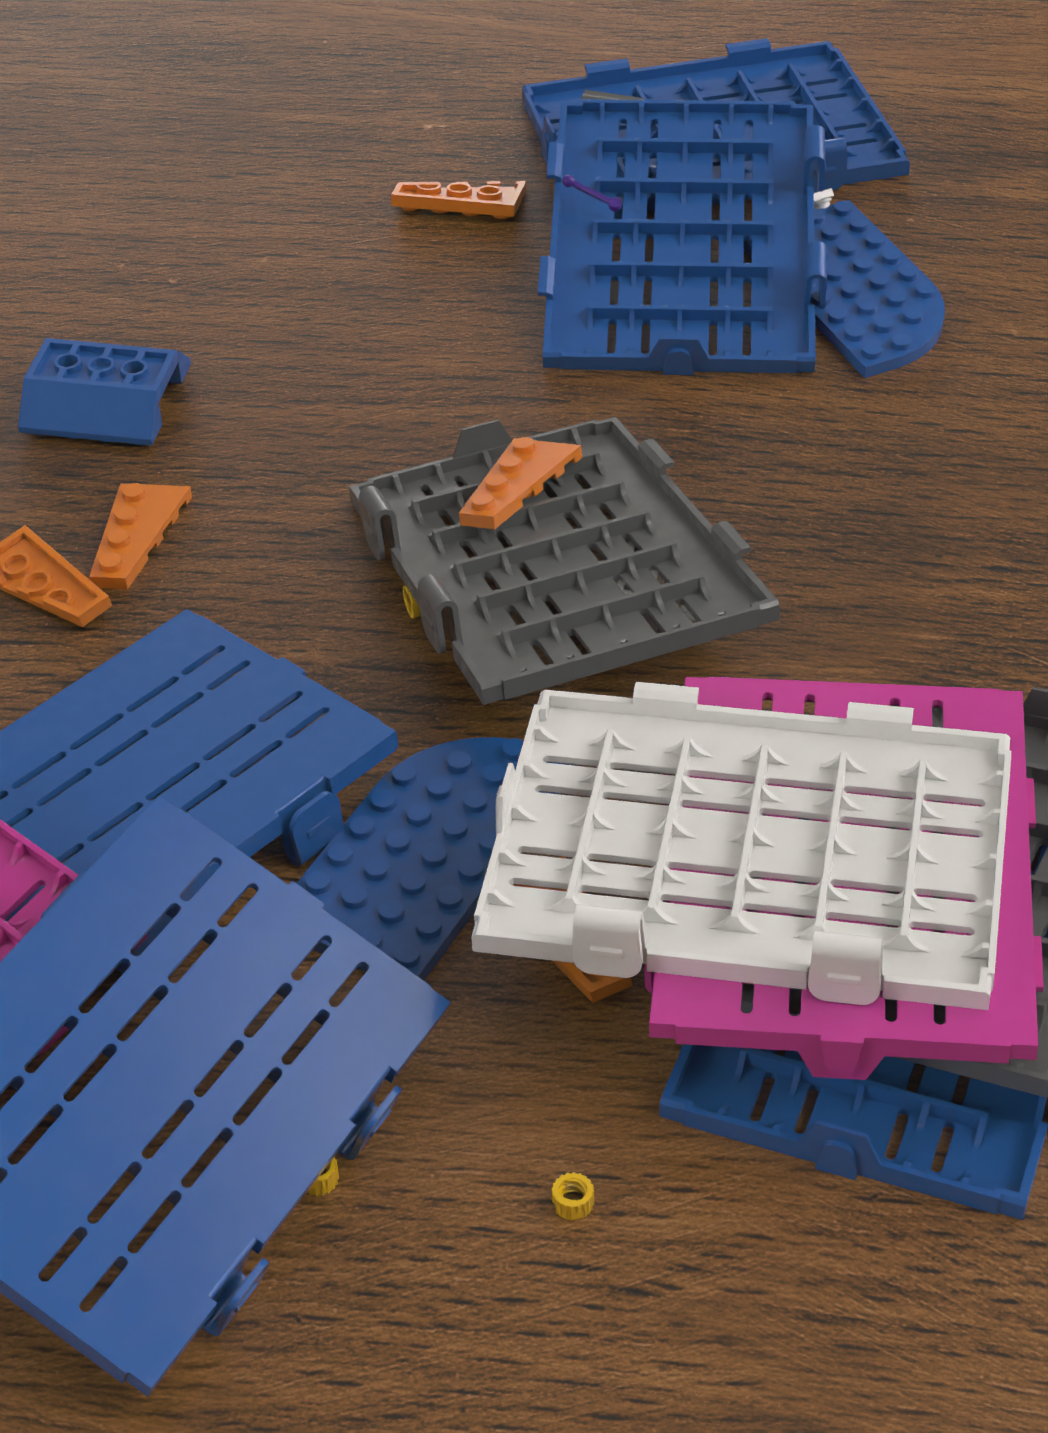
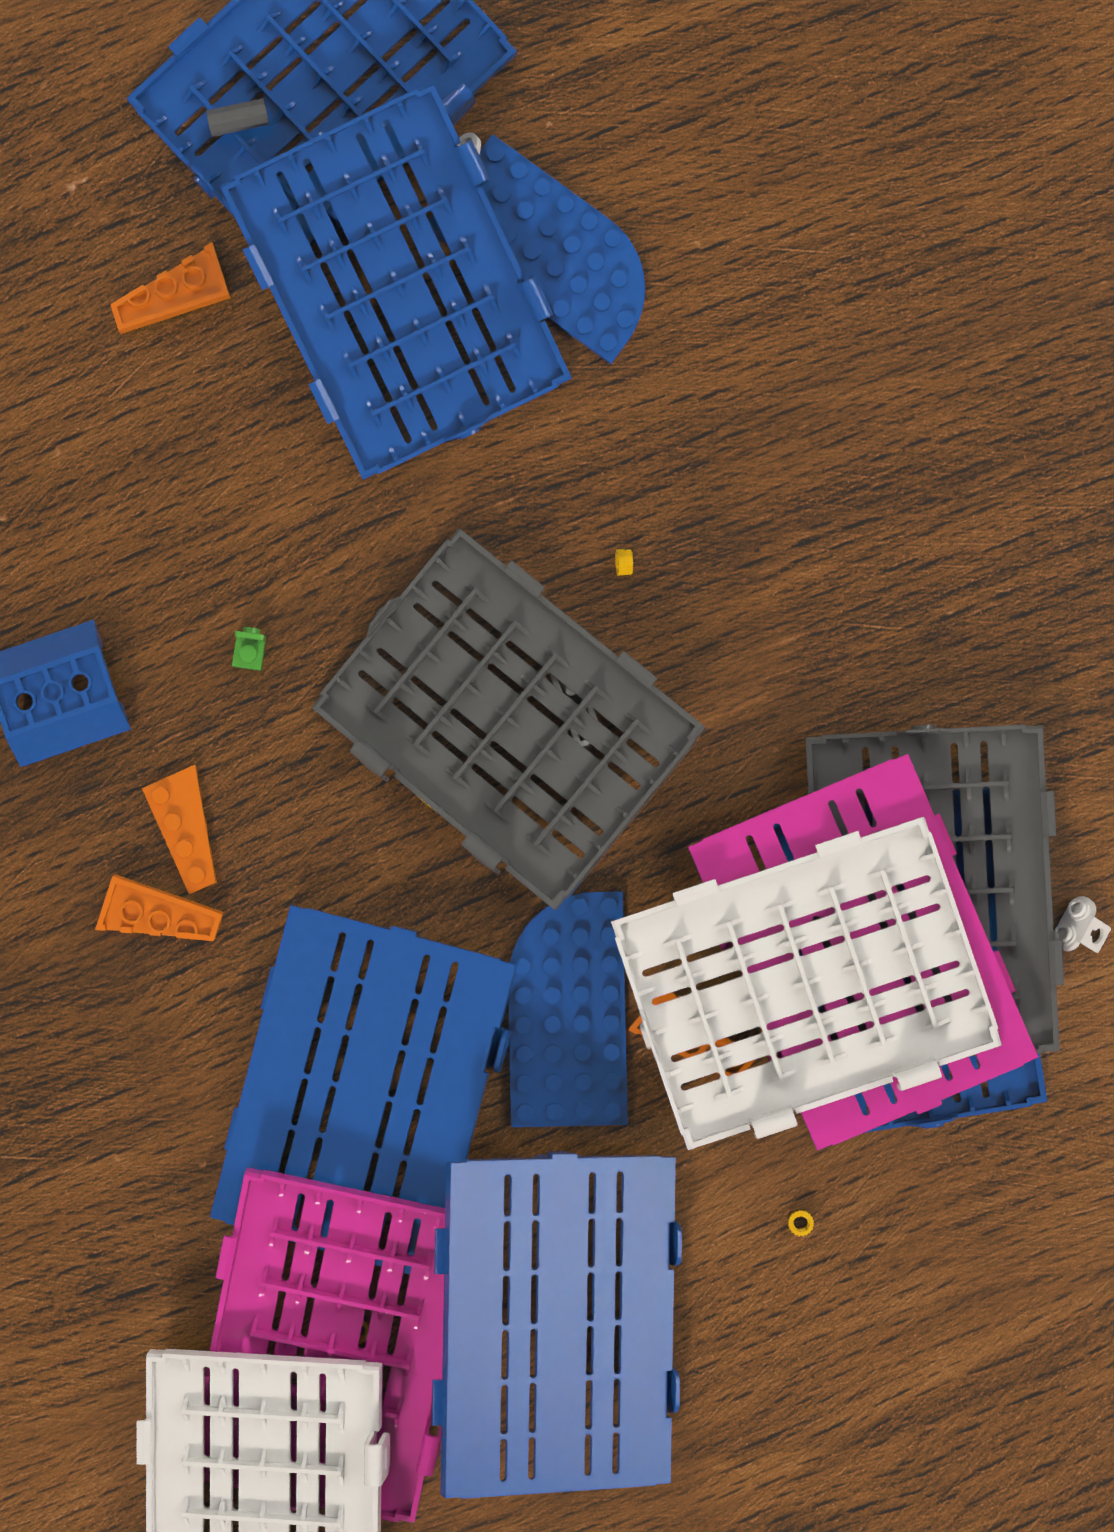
camera: 30 degrees left, 45 degrees up
(326, 430) = (249, 649): none -> bright green bracket
(514, 477) = (441, 656): orange wing -> none
(614, 203) = (336, 296): dark purple hinge -> none
(777, 502) = (624, 562): none -> yellow axle

